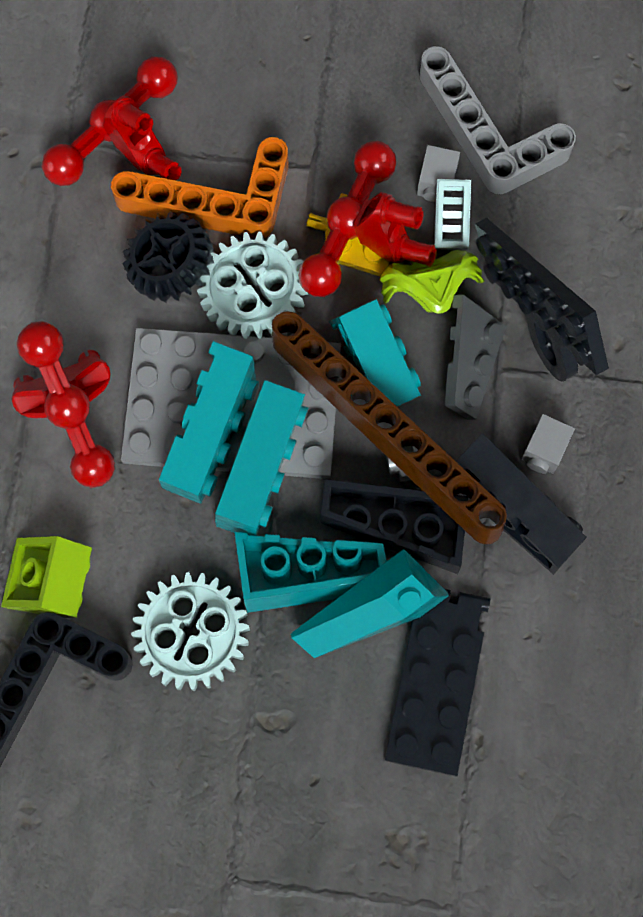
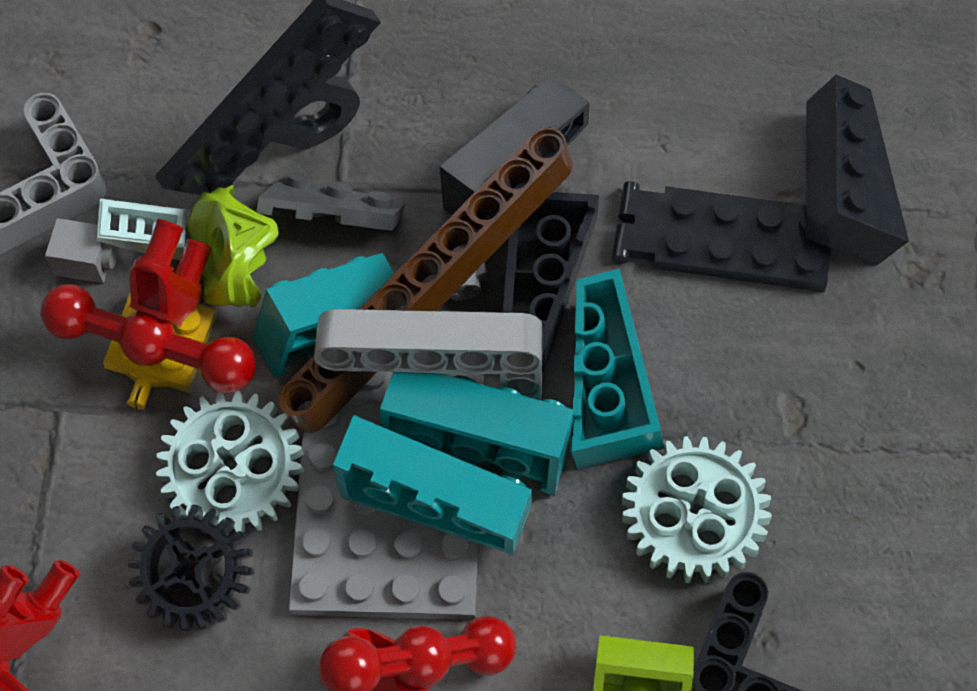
camera: 90 degrees left, 10 degrees down
(211, 199) = (106, 524): orange beam -> none
(307, 481) = (434, 344): none -> light grey beam
(381, 601) = (650, 277): teal wedge -> none
(485, 788) = (849, 175): none -> black wedge
(547, 445) = (436, 124): light grey brick -> none

